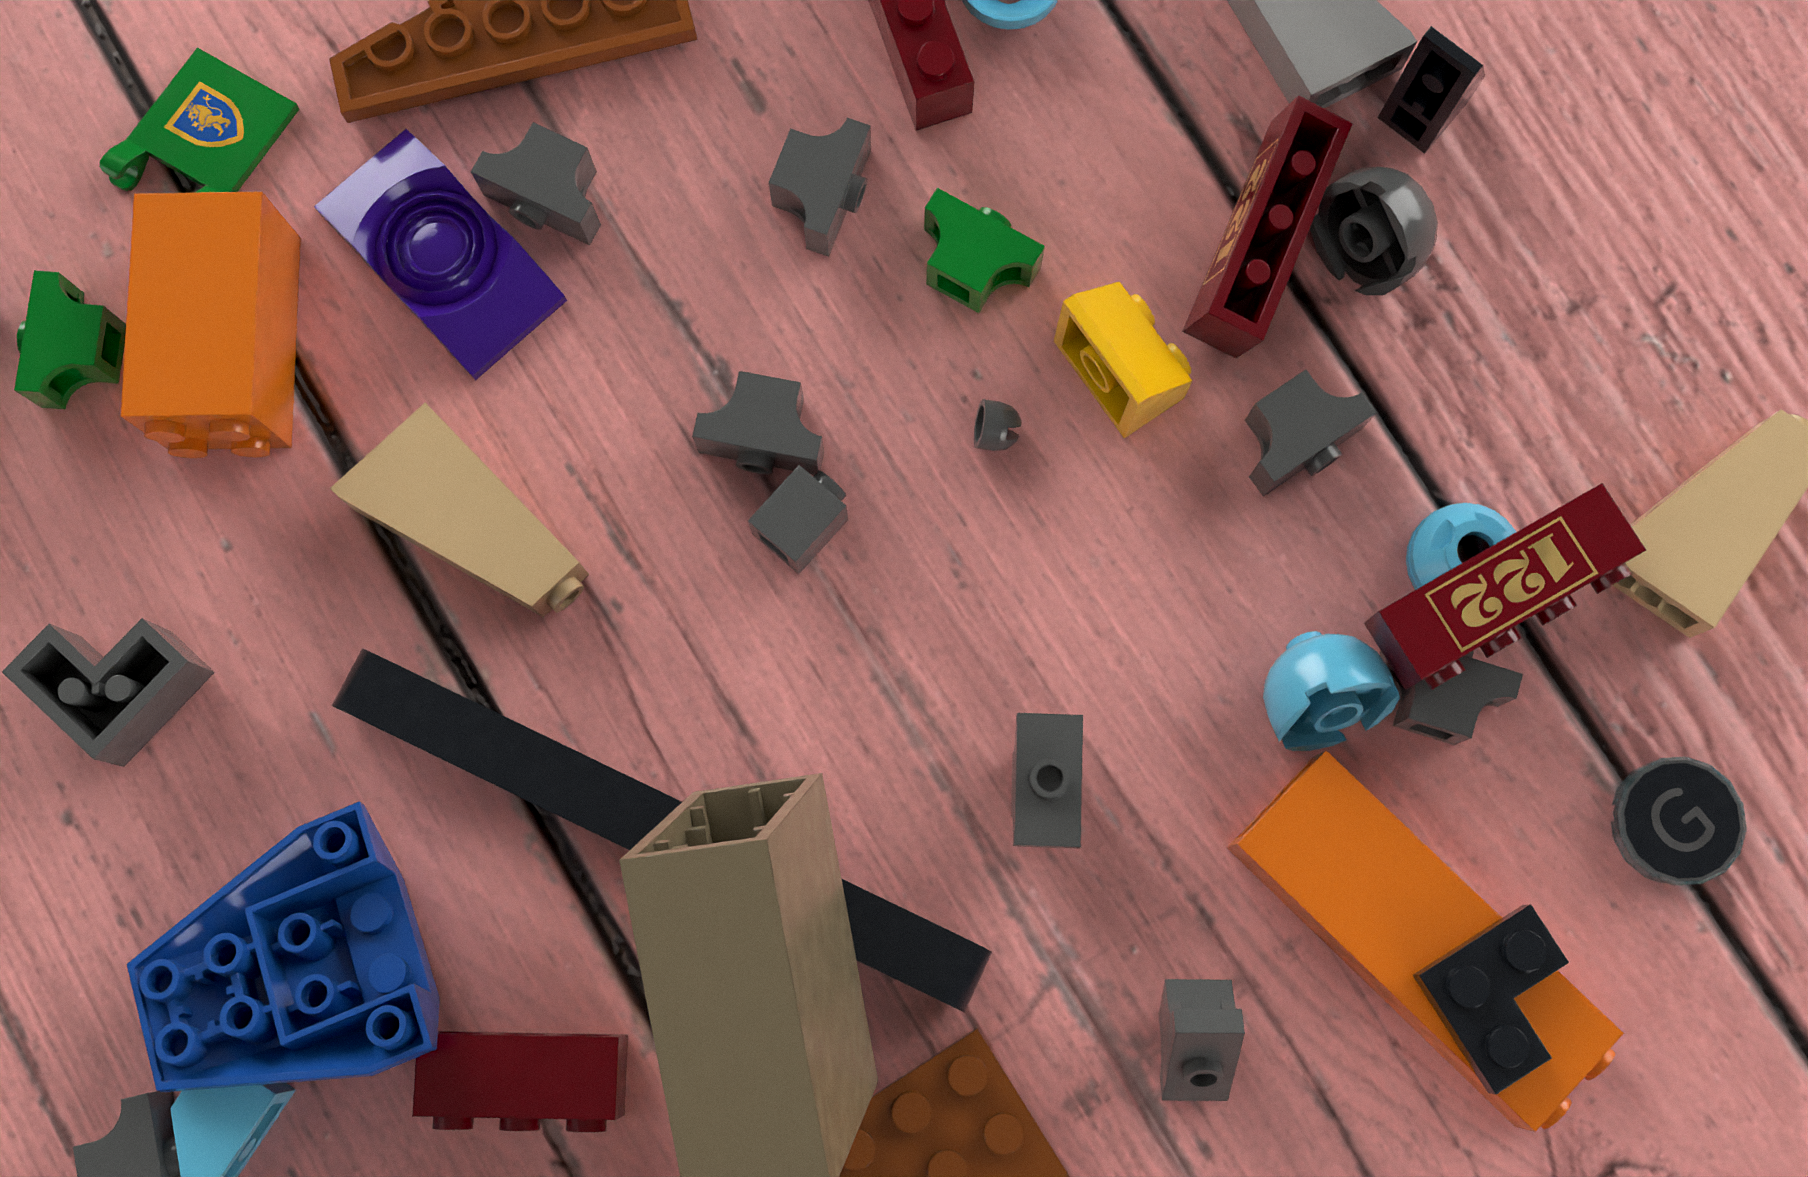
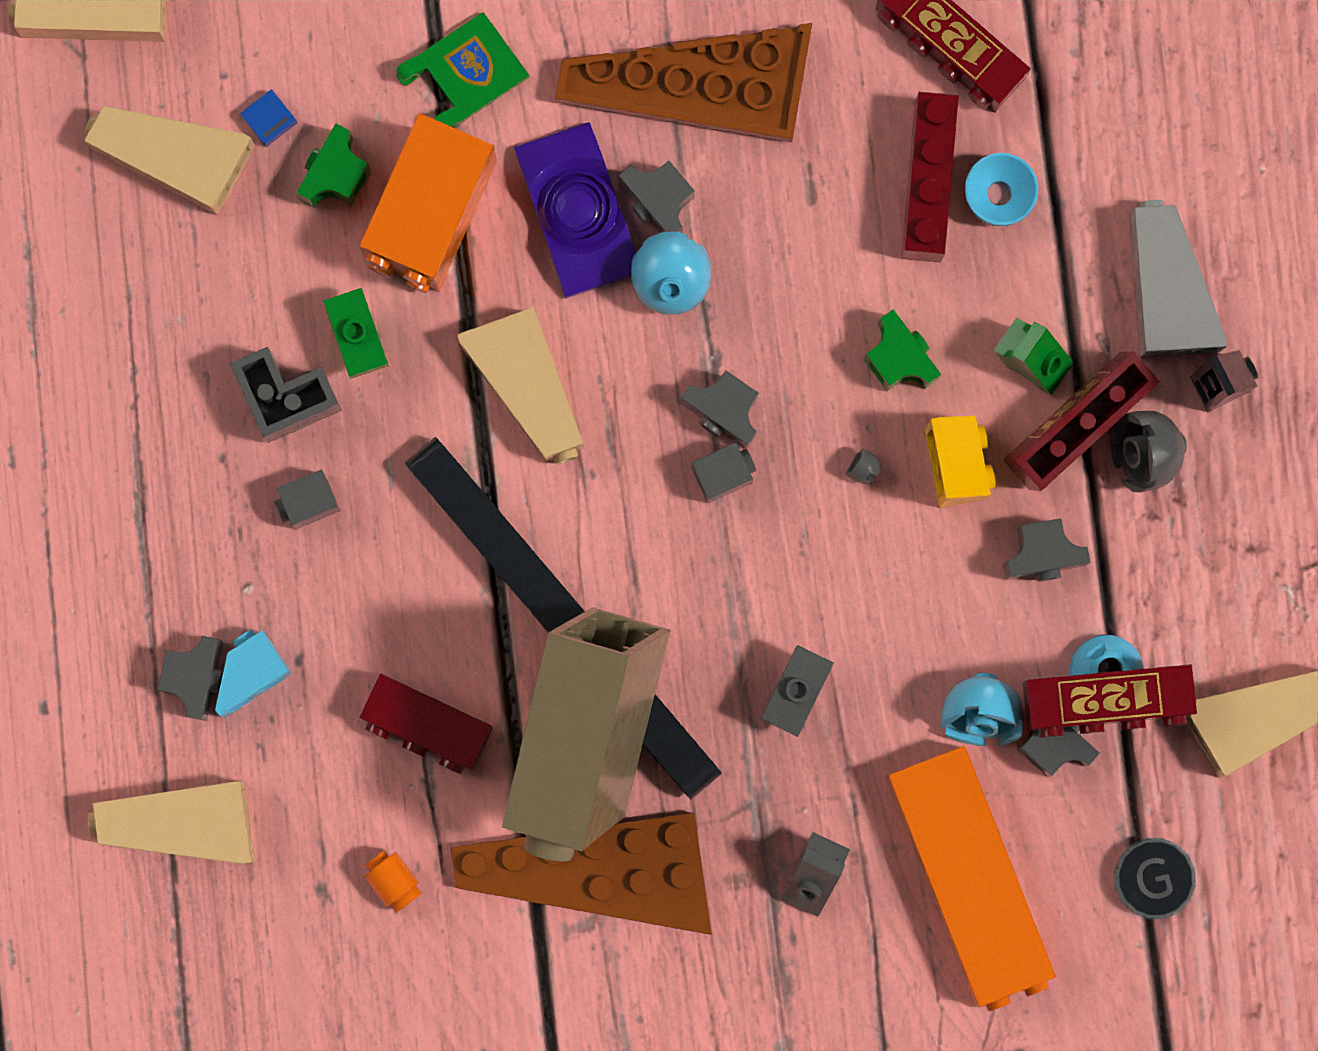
camera: 20 degrees right, 5 degrees up
(181, 549) = (356, 333): none -> green brick
(209, 824) = (306, 500): none -> dark grey brick
(292, 969) = (324, 604): blue wedge -> none
(603, 273) = (671, 273): none -> medium azure cylinder
(822, 180) = (827, 270): dark grey brick -> none
(1159, 168) = (1034, 354): none -> green brick
(1476, 993) = (981, 917): black plate -> none

